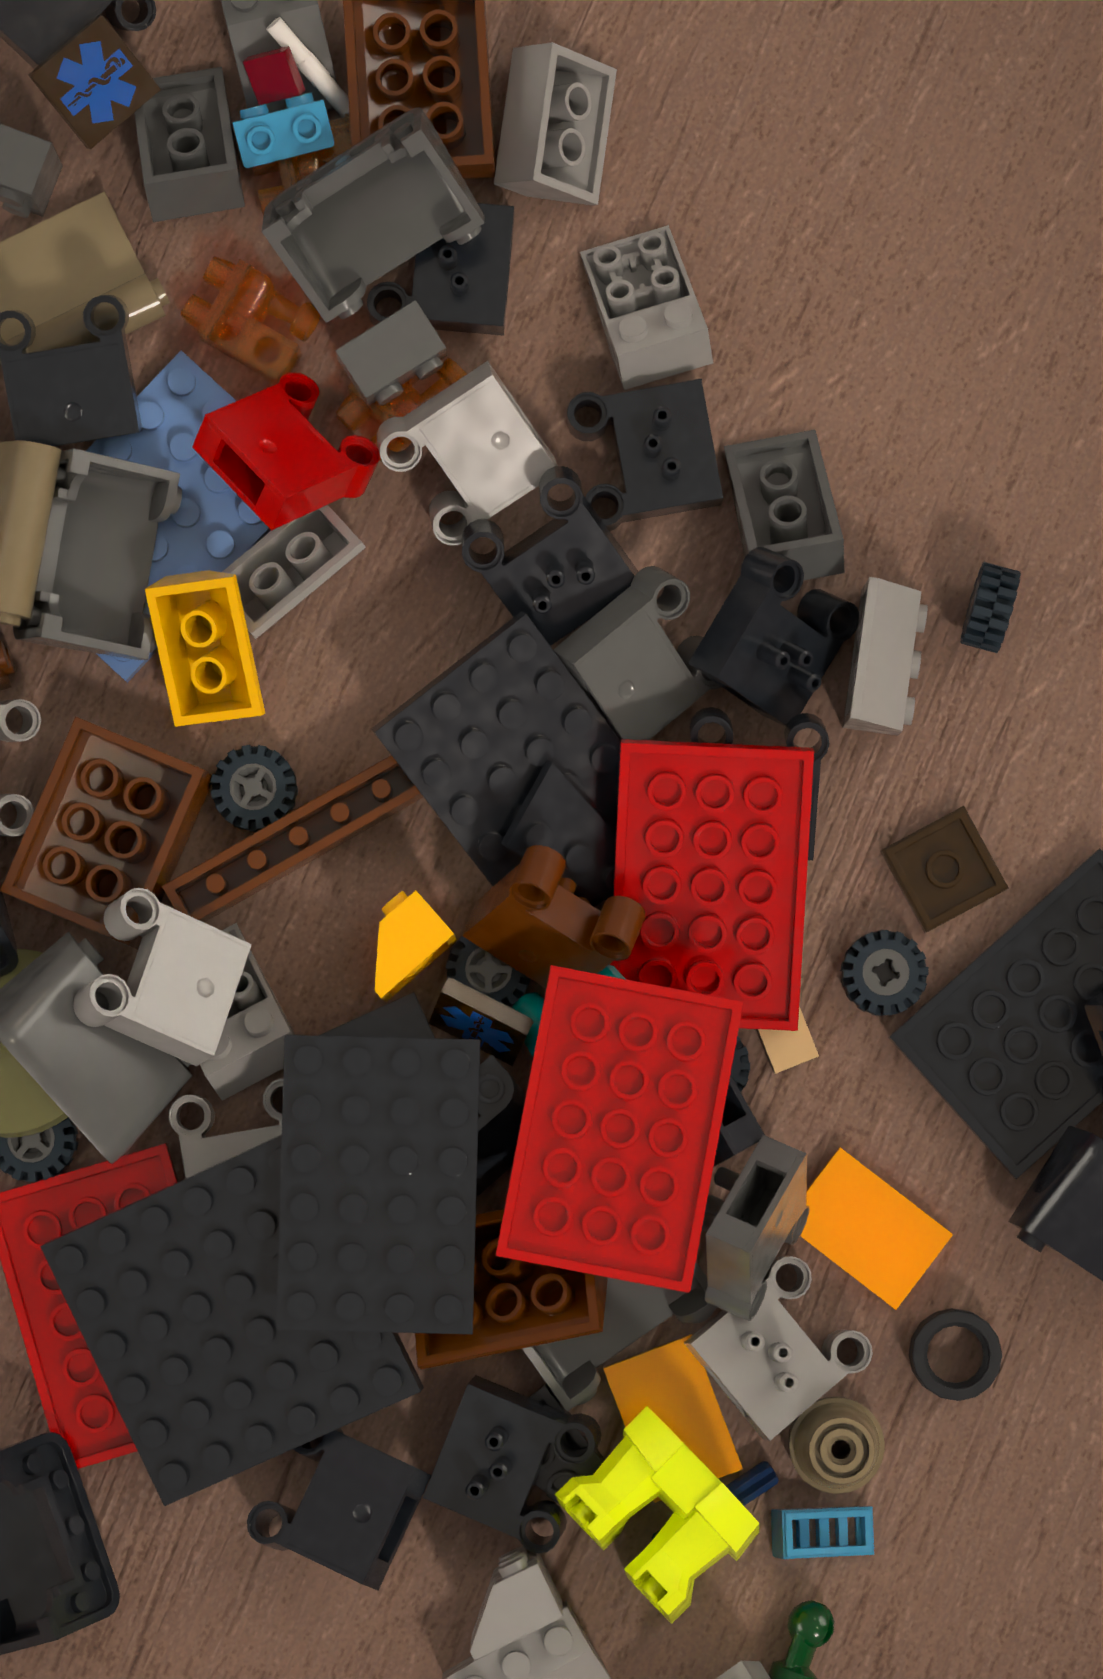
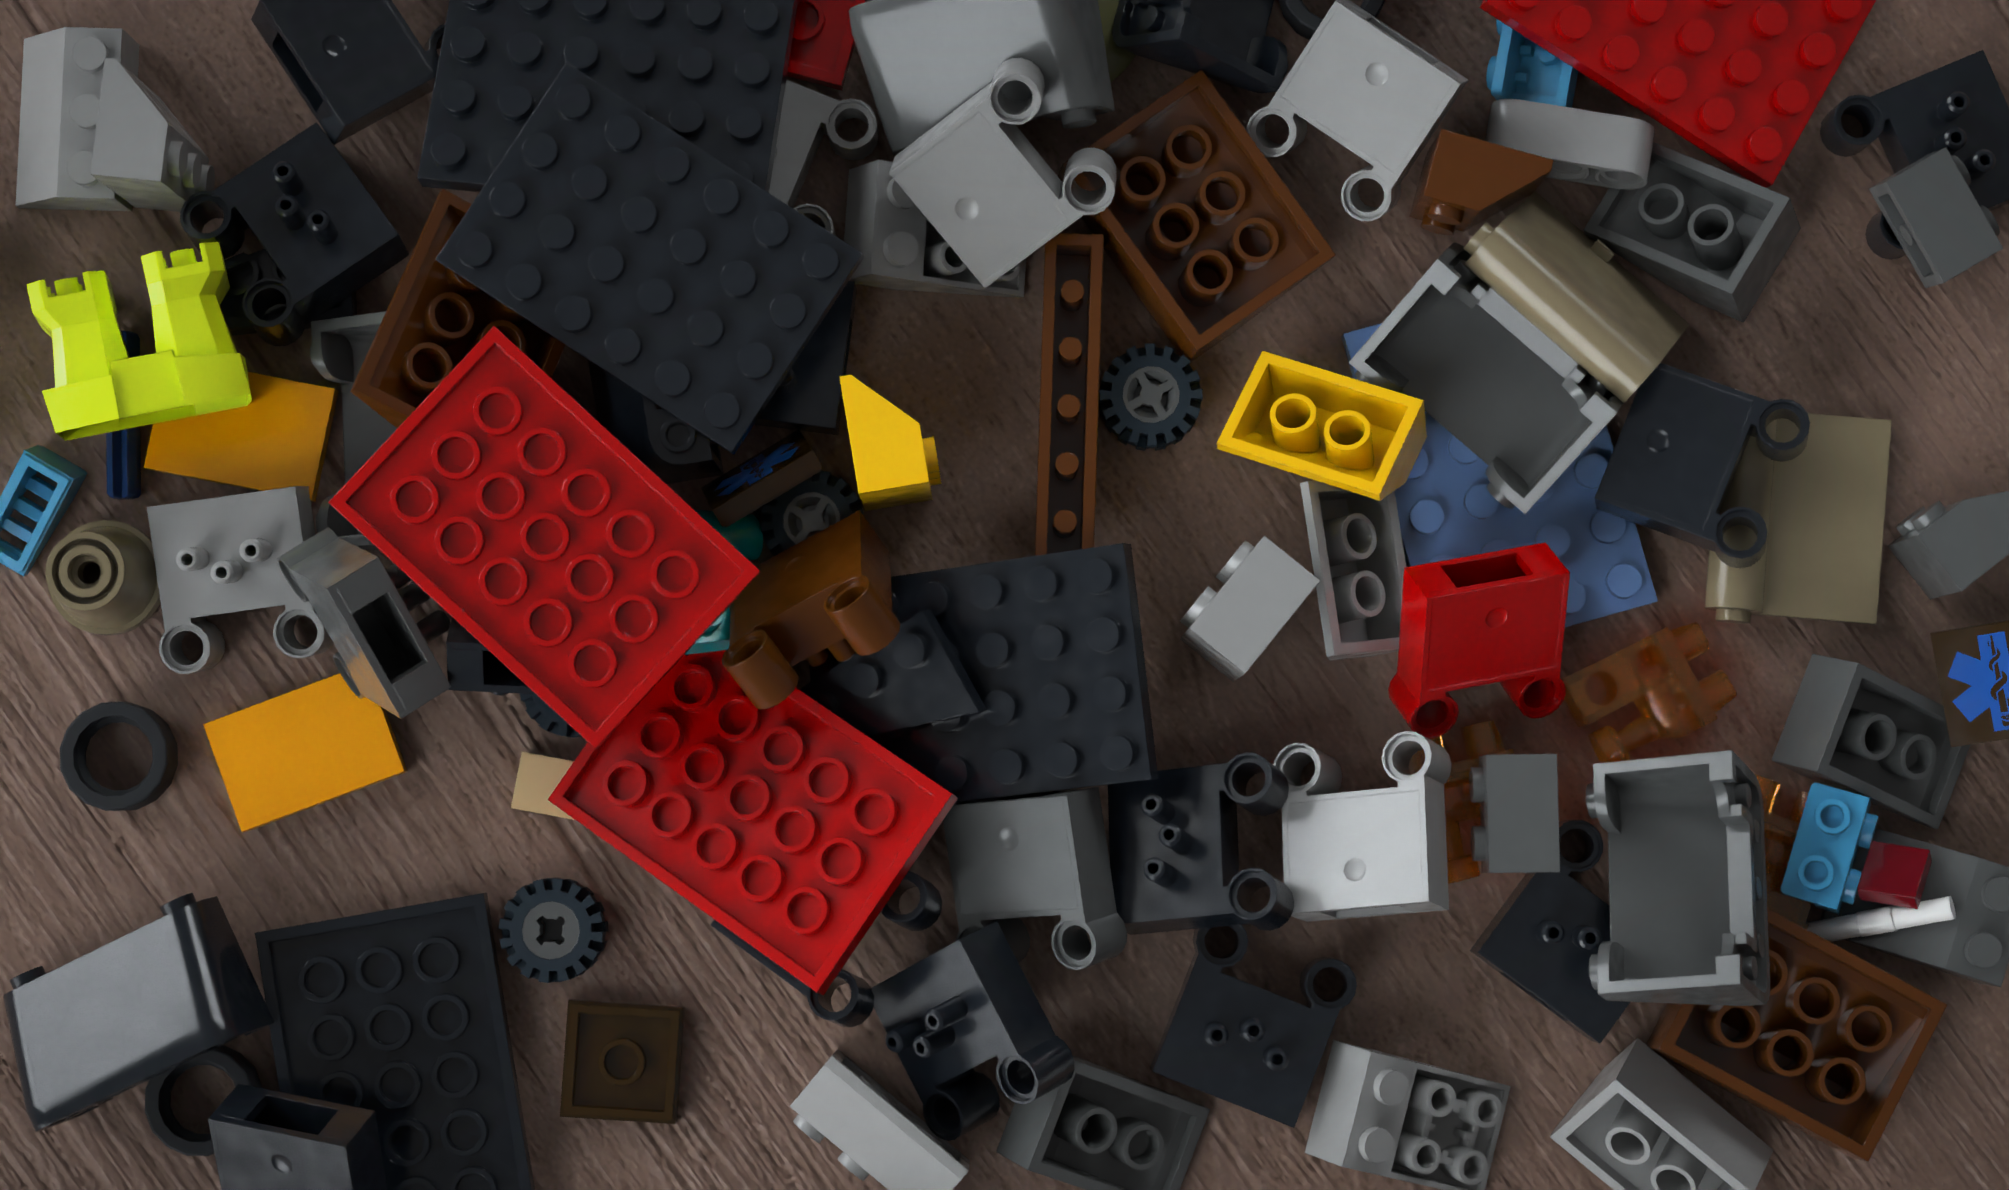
camera: 125 degrees right, 0 degrees up
(364, 624) = (1249, 610): none -> light grey brick

